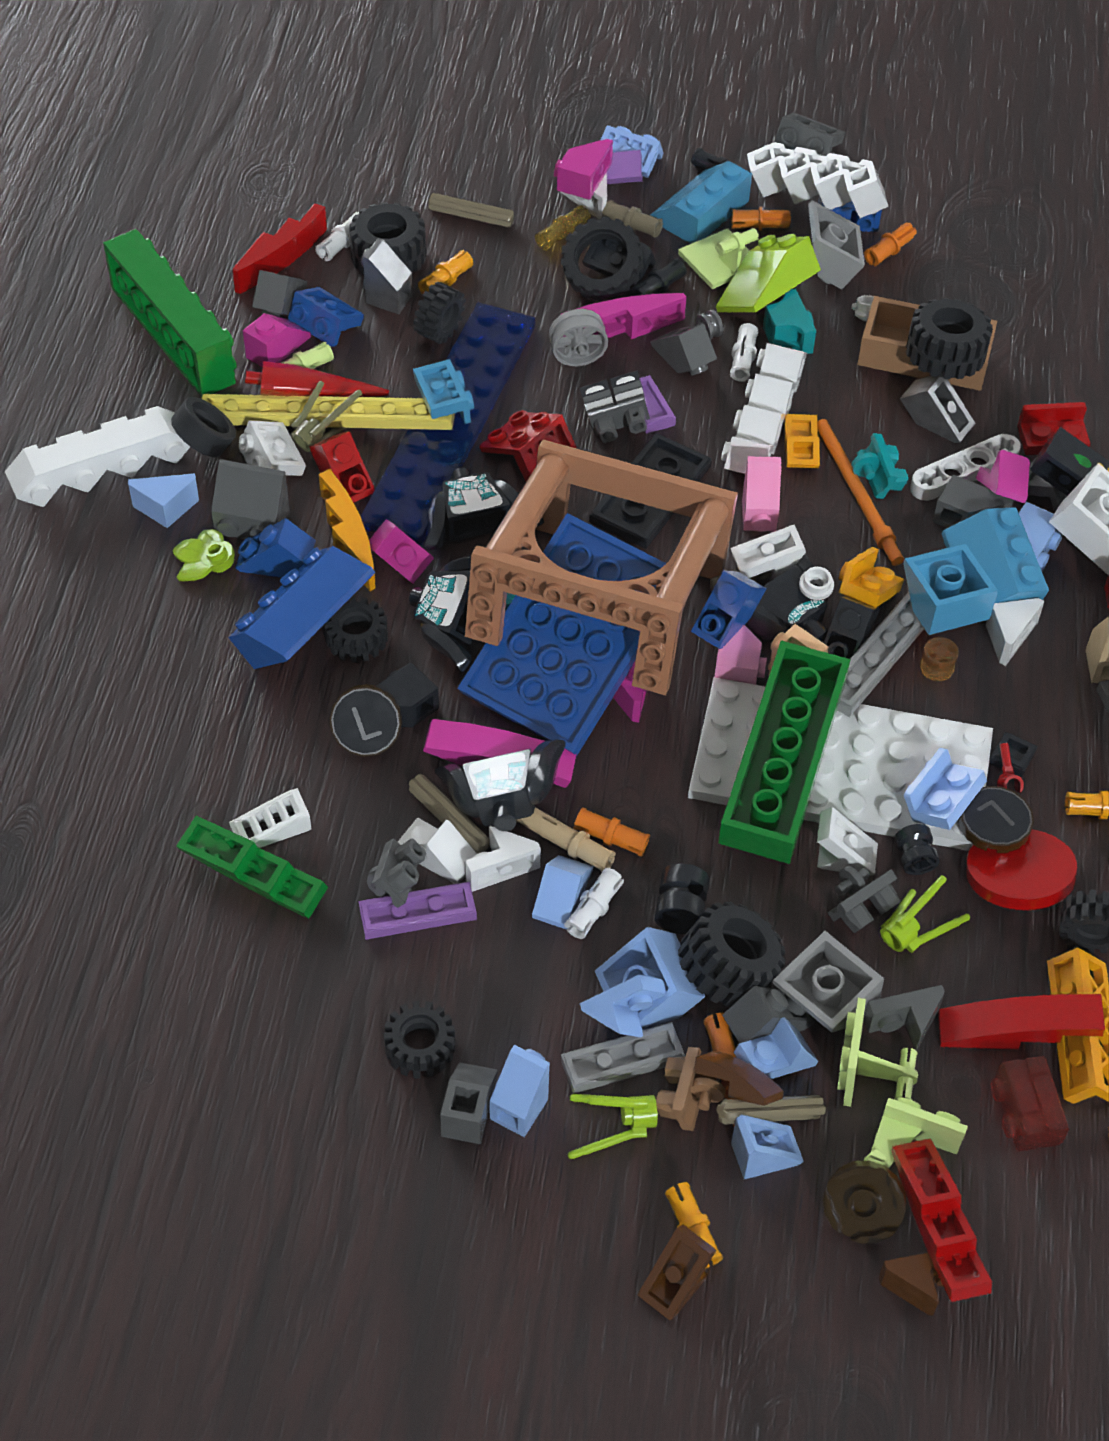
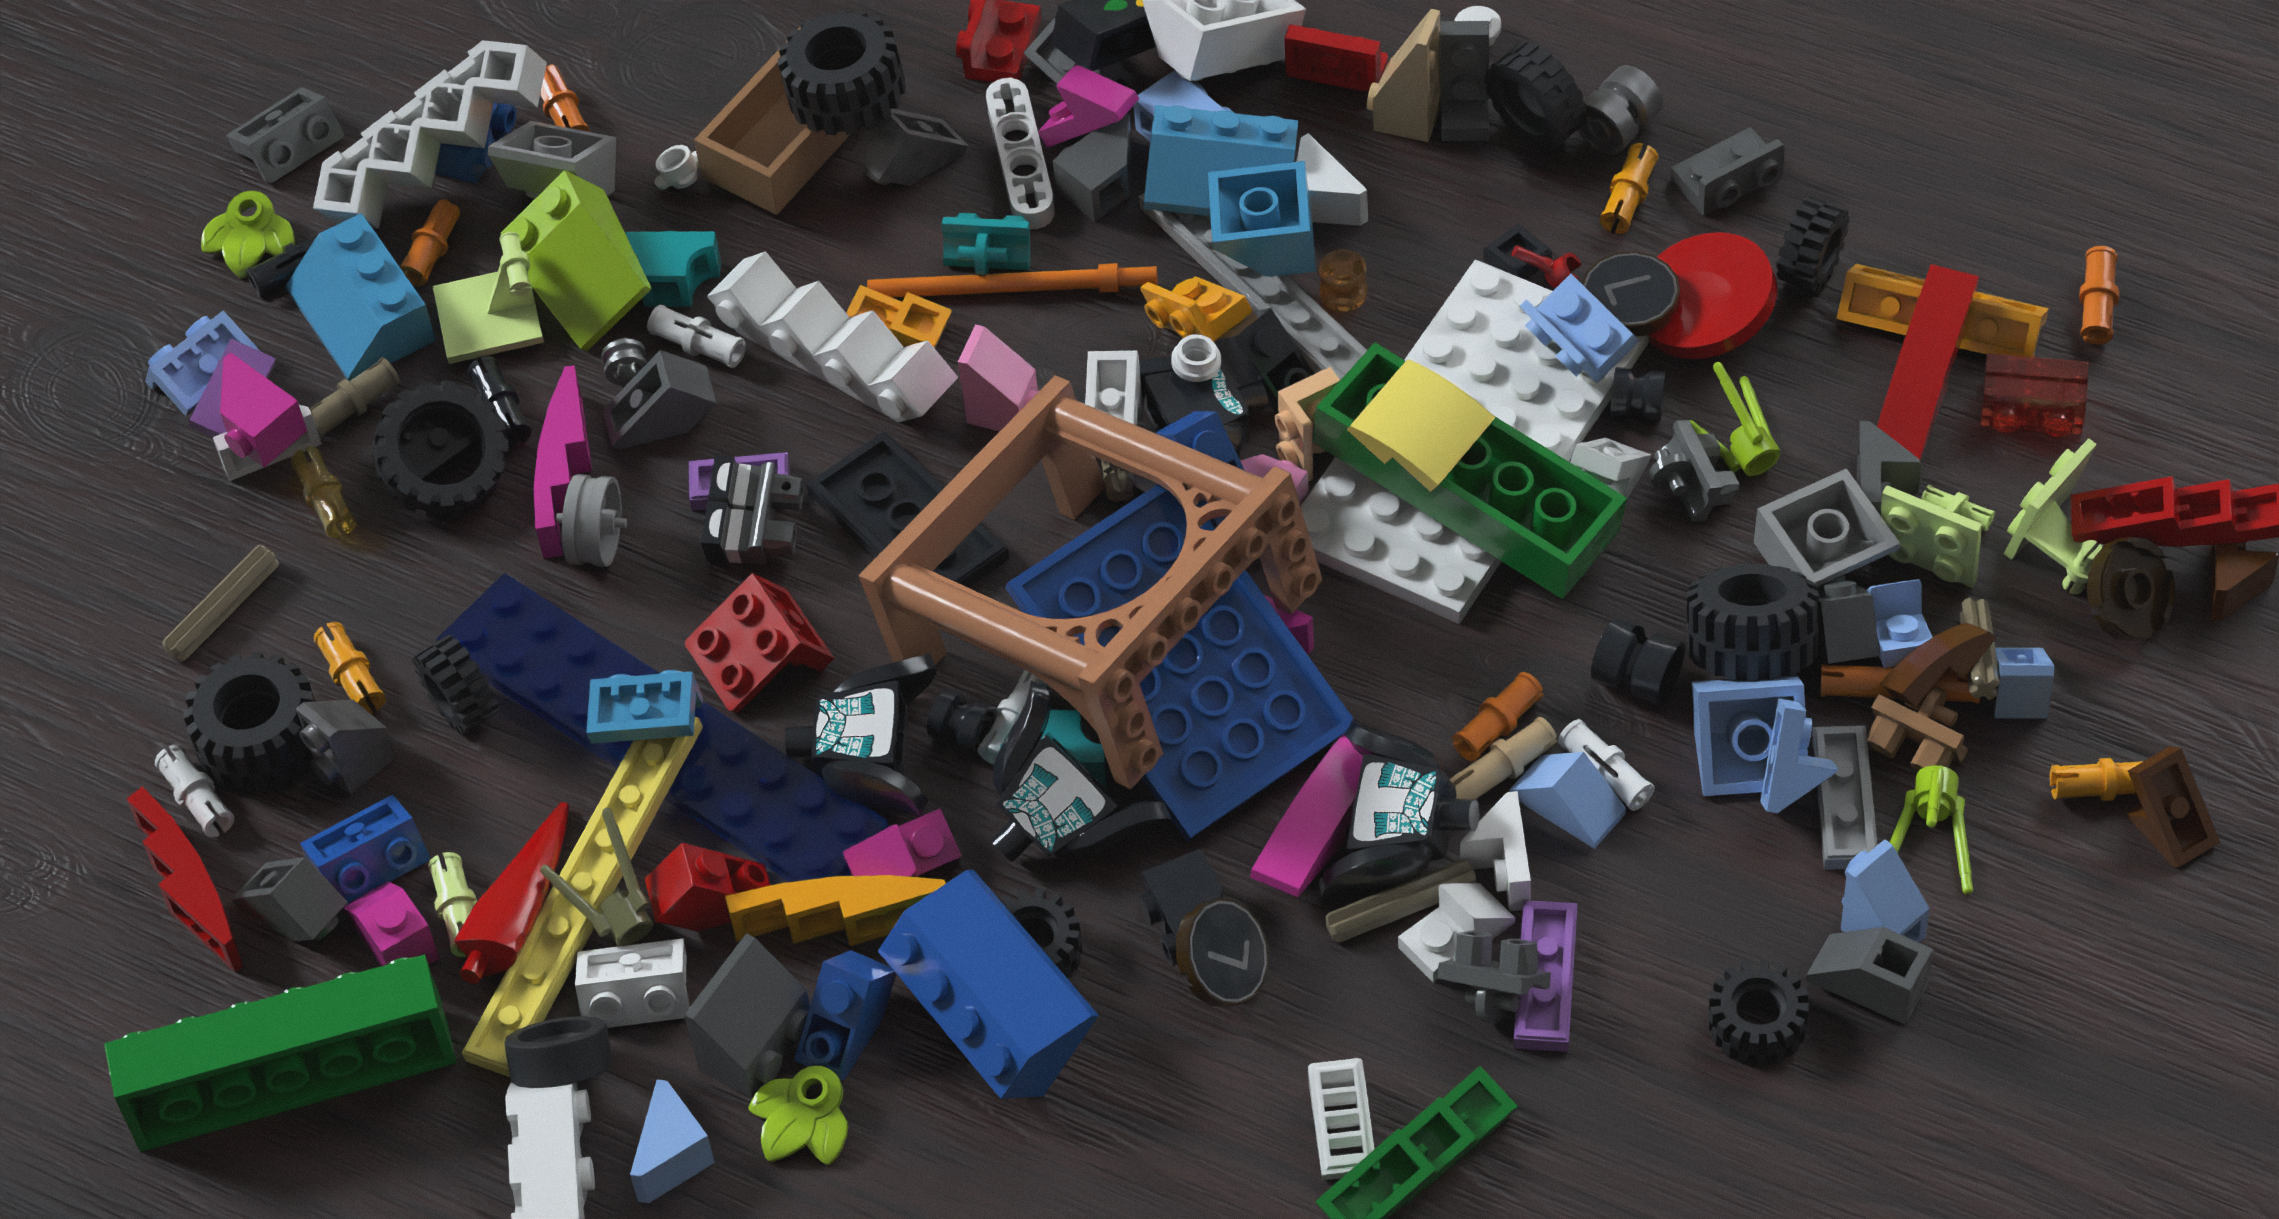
camera: 65 degrees left, 0 degrees up
(732, 143) = (247, 238): none -> lime plate
(788, 699) = (1421, 423): none -> light yellow slope

